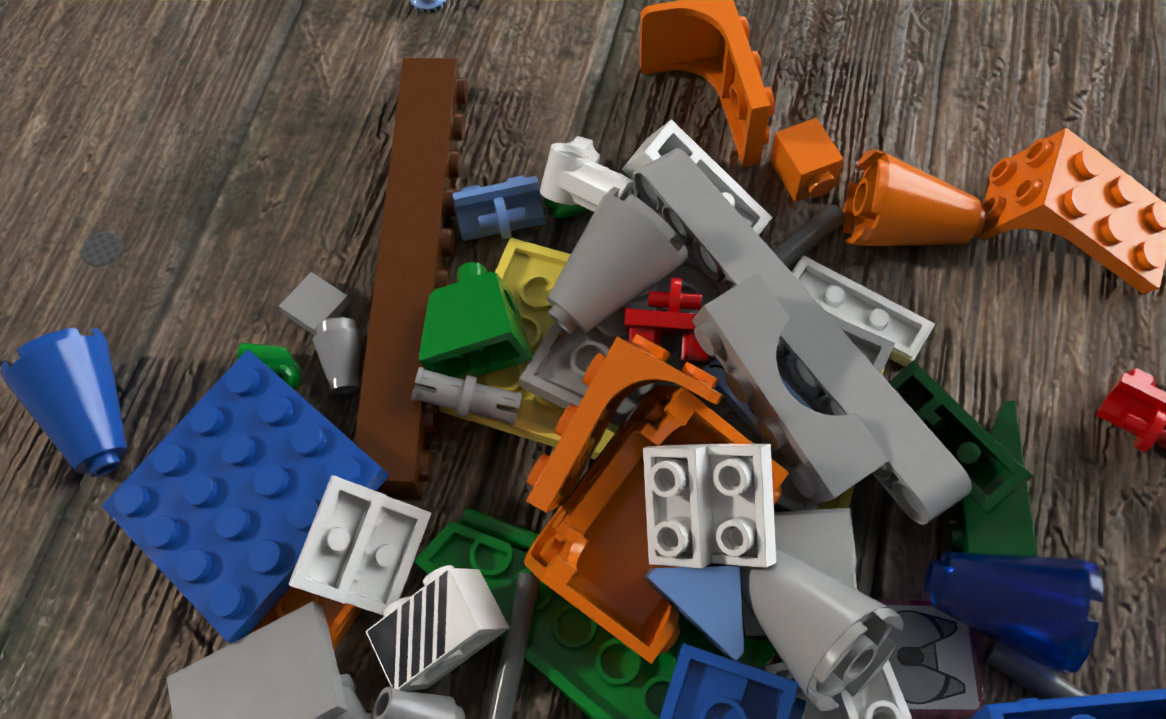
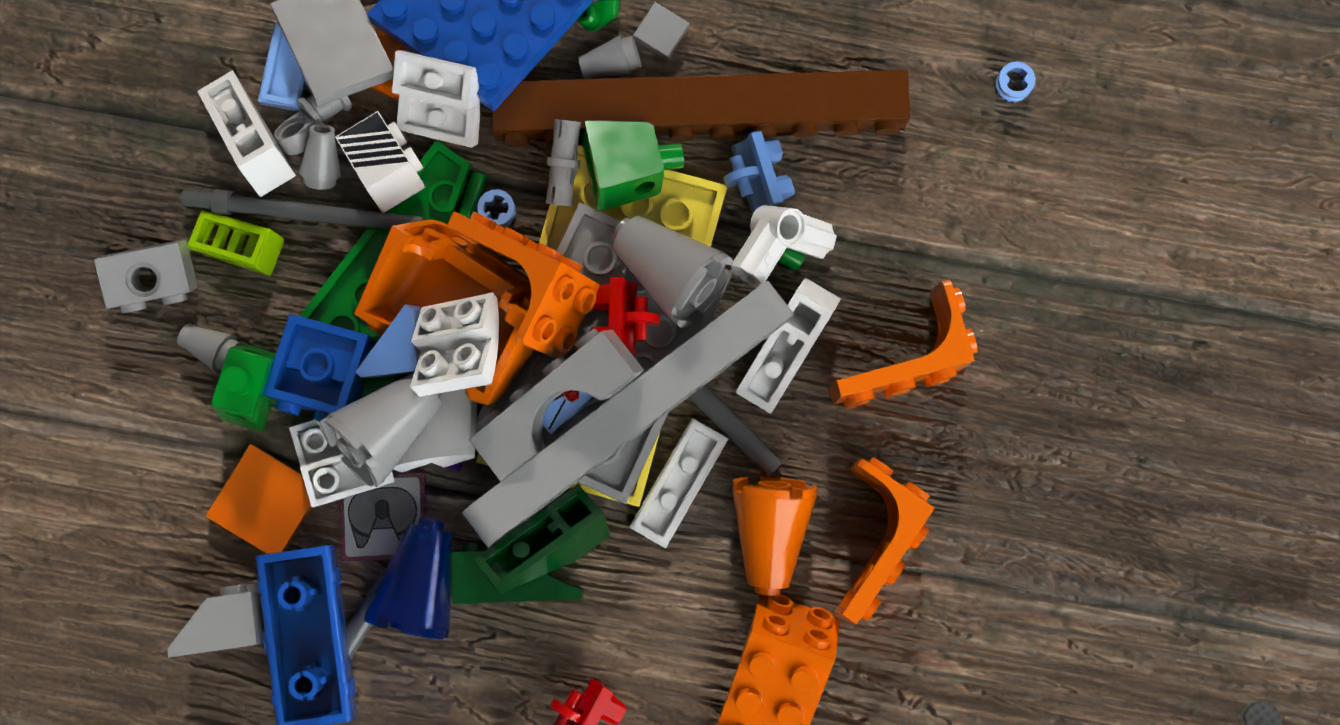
camera: 80 degrees right, 20 degrees up
(502, 483) = (489, 199): none -> light blue bush
(806, 160) = (824, 442): orange brick -> none
(928, 96) = (905, 530): none -> orange bracket

